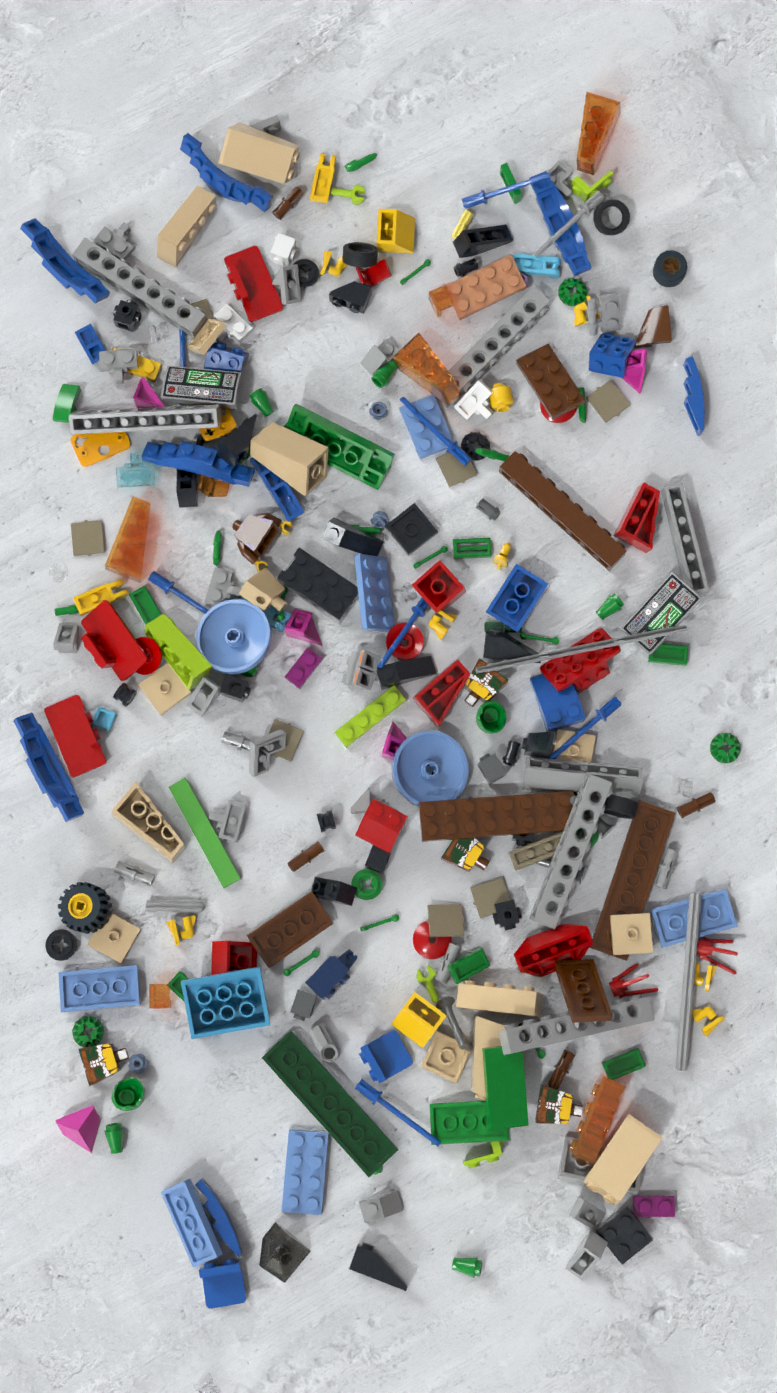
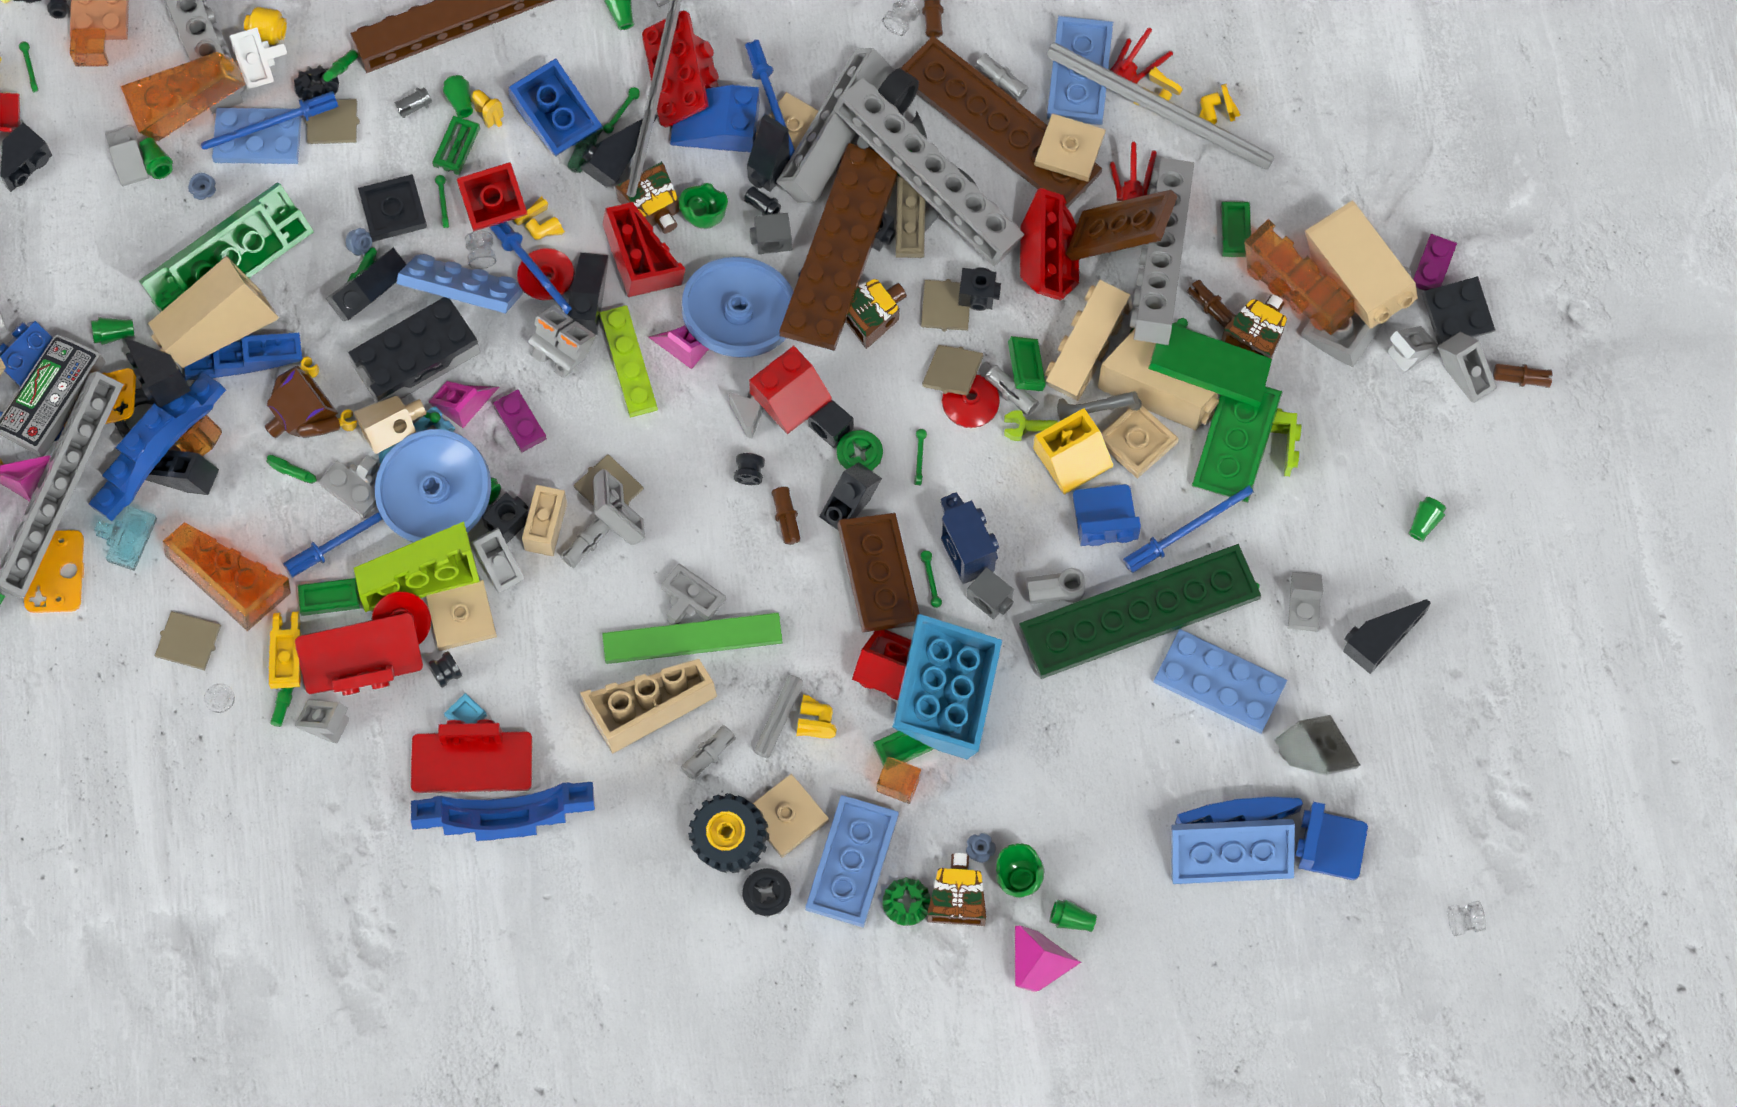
camera: 70 degrees left, 10 degrees down
(241, 712) = (544, 520): none -> tan panel
(503, 535) = (458, 94): none -> green cone
(596, 1295) = (1522, 375): none -> reddish brown axle

